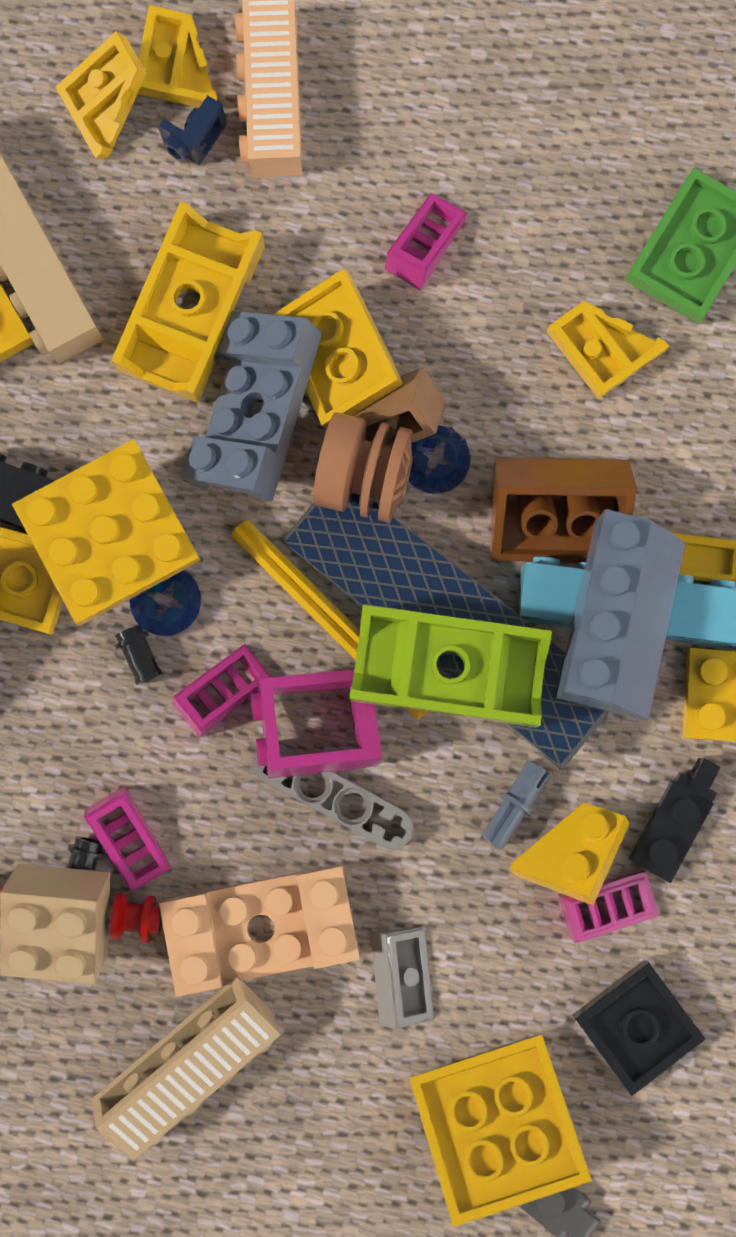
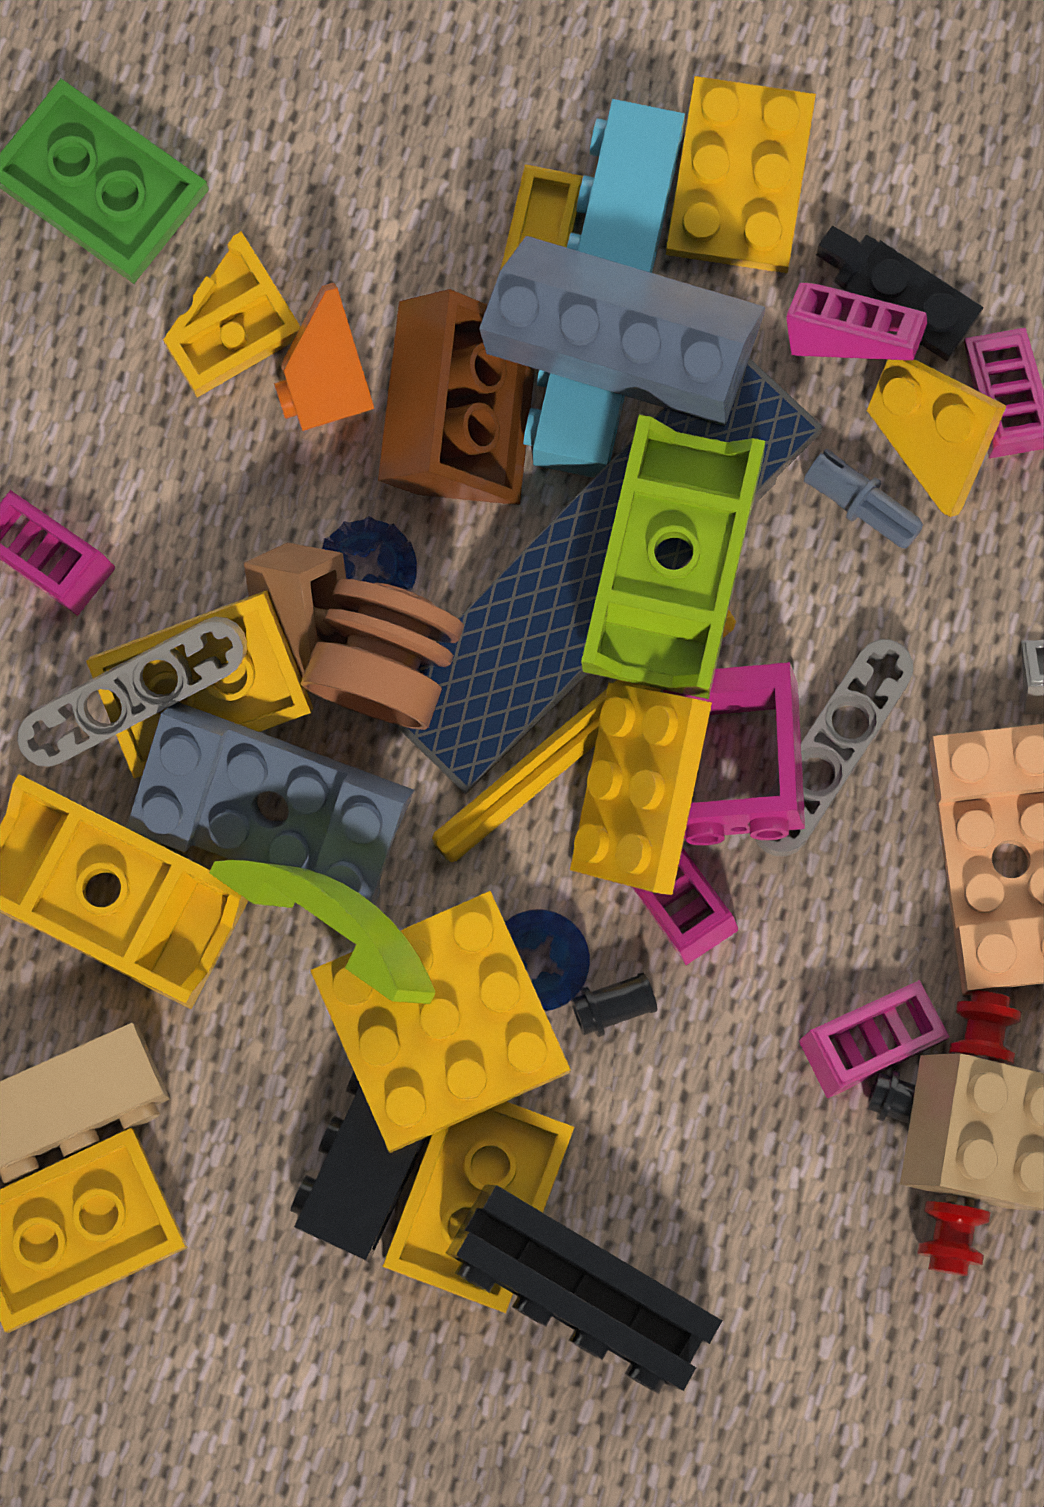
camera: 80 degrees left, 5 degrees down
(135, 483) = (381, 951): none -> lime slope
(283, 658) = (640, 787): none -> yellow plate
(321, 302) = (135, 697): none -> light grey beam
(571, 412) = (323, 367): none -> orange slope
(645, 771) = (851, 325): none -> dark pink slope

